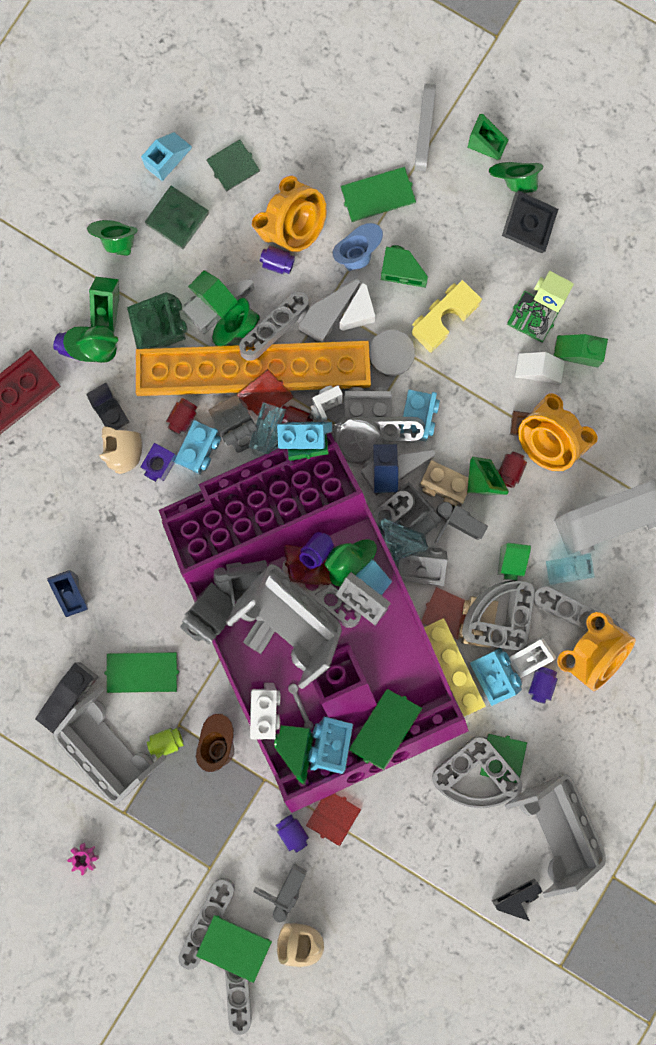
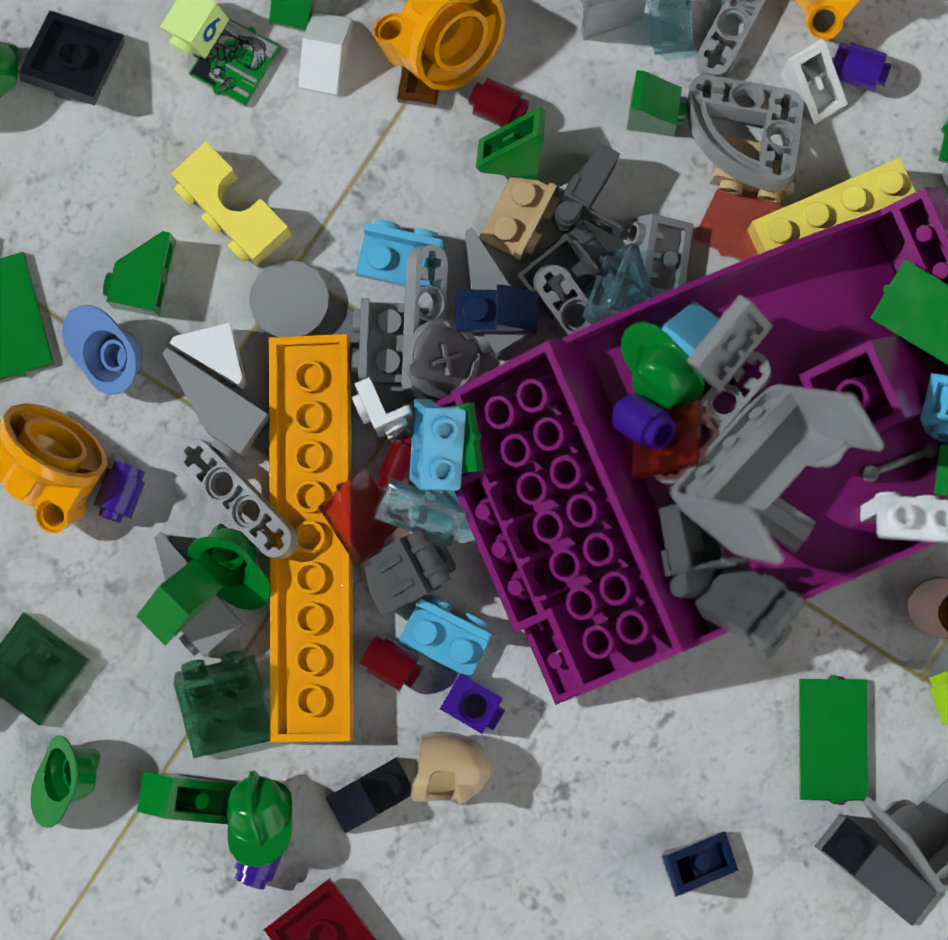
camera: 85 degrees left, 0 degrees up
(496, 676) = (846, 141): medium azure bracket -> none

